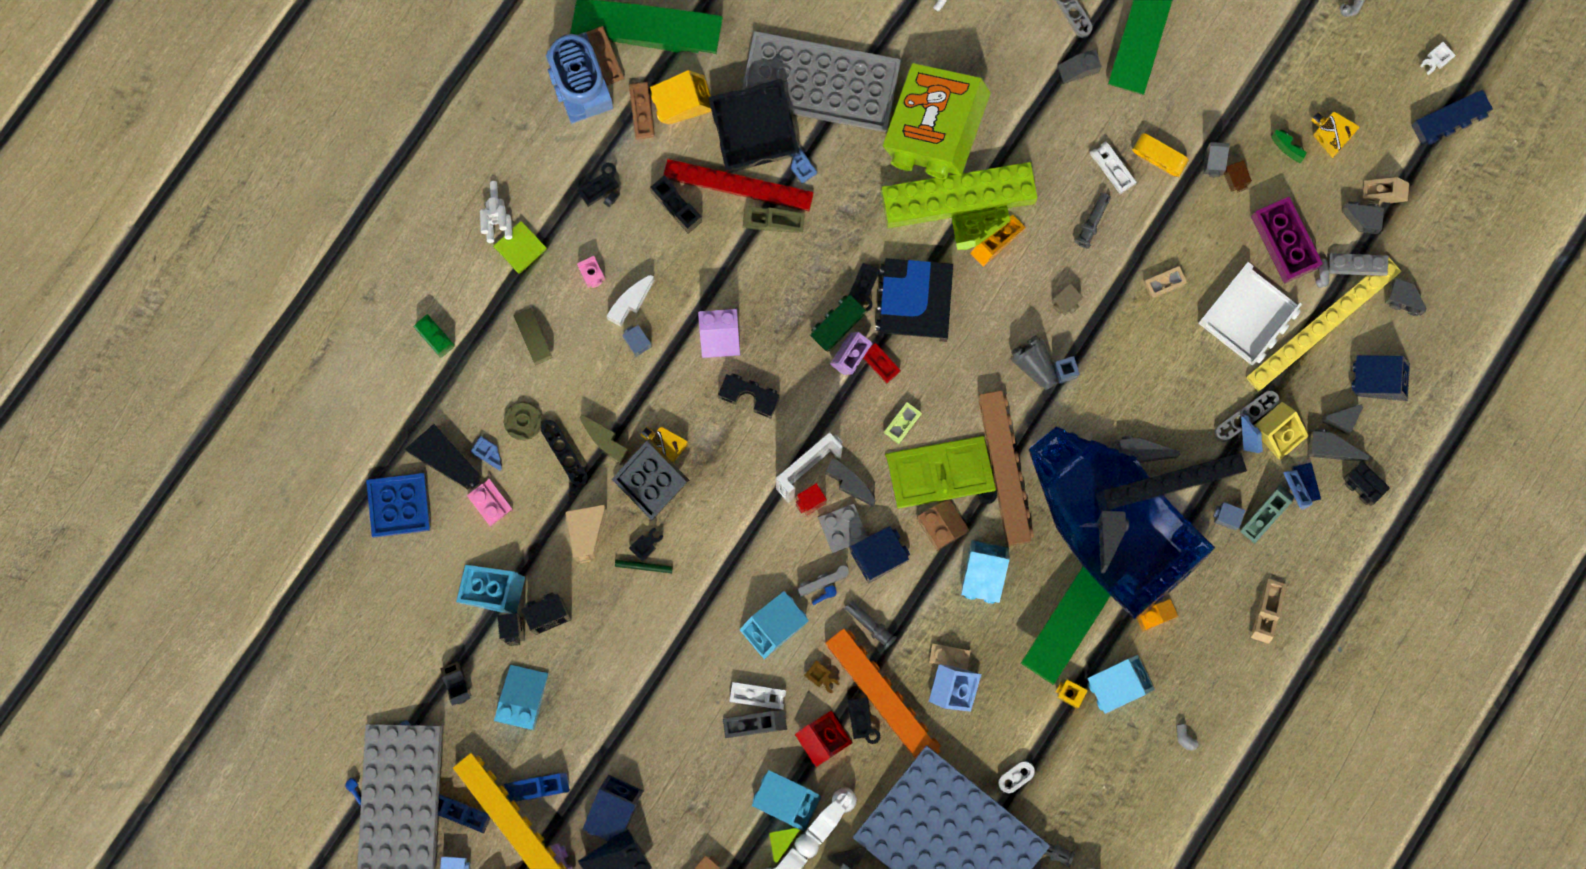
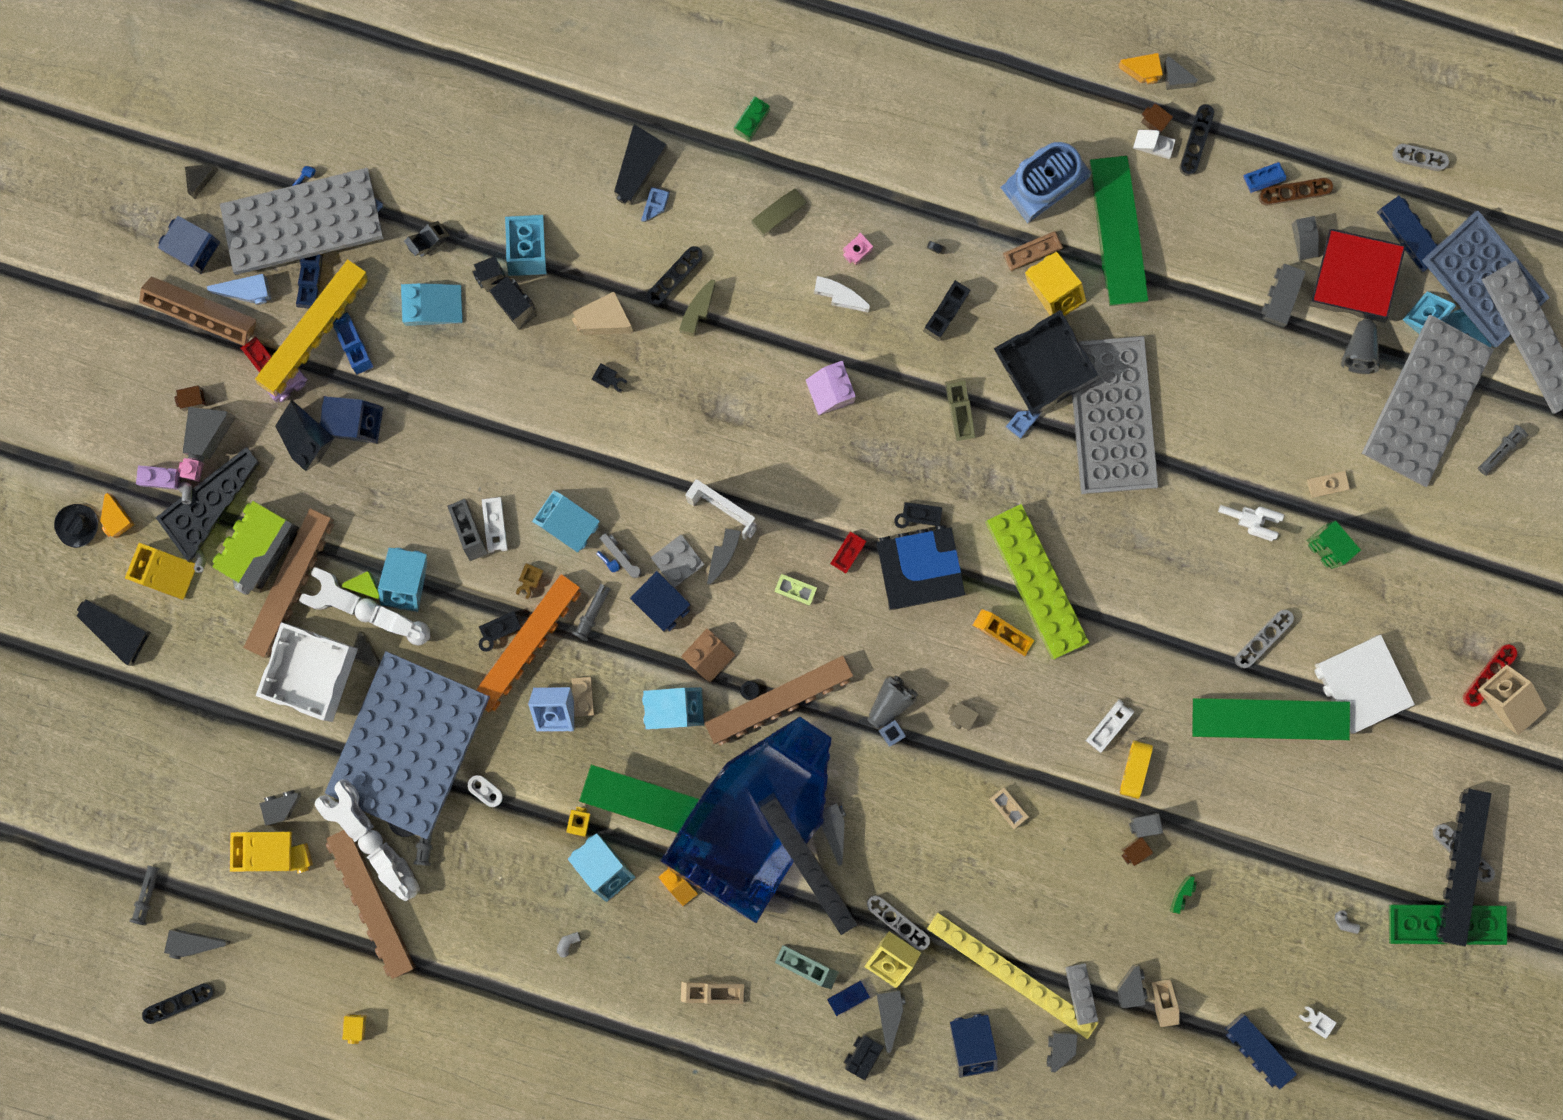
camera: 75 degrees right, 5 degrees up
(398, 505) = (580, 135): blue plate -> none
(489, 502) = (608, 219): bright pink plate -> none
(495, 214) = (886, 140): white plant -> none
(521, 249) = (862, 174): lime tile -> none
(522, 421) = (694, 227): olive tile -> none
(599, 186) = (945, 232): black hinge -> none
(605, 56) = (1076, 199): medium nougat tile -> none
(636, 340) = (803, 311): sand blue brick -> none
(643, 566) = (588, 382): dark green bar -> none
(650, 479) = (670, 363): black plate -> none
(666, 441) = (707, 367): yellow torso -> none
(734, 387) = (782, 417): black arch -> none
(738, 185) = (985, 365): red plate -> none
(810, 500) = (693, 521): red brick -> none
(823, 738) = (471, 598): red slope -> none
(838, 322) = (875, 499): dark green brick -> none
(851, 353) = (848, 520): lavender brick -> none
(936, 120) = (1101, 538): lime brick -> none
(940, 472) = (758, 639): lime door -> none
(976, 227) = (1009, 608): lime plate -> none
(1080, 66) = (1202, 666): dark grey slope -> none
(1089, 228) = (1042, 719): dark grey pin -> none
(1111, 531) = (741, 817): dark grey slope -> none
(1229, 516) = (793, 929): sand blue brick -> none
(1250, 315) = (1000, 900): white panel -> none
(1251, 436) = (877, 932): medium blue tile -> none
(1286, 240) = (1084, 916): magenta brick -> none
(1298, 489) = (838, 990): medium blue slope -> none
(1324, 274) = (1056, 963): light grey arm -> none
(1333, 131) = (1210, 935): yellow torso -> none
(1344, 420) = (921, 1019): dark grey slope -> none

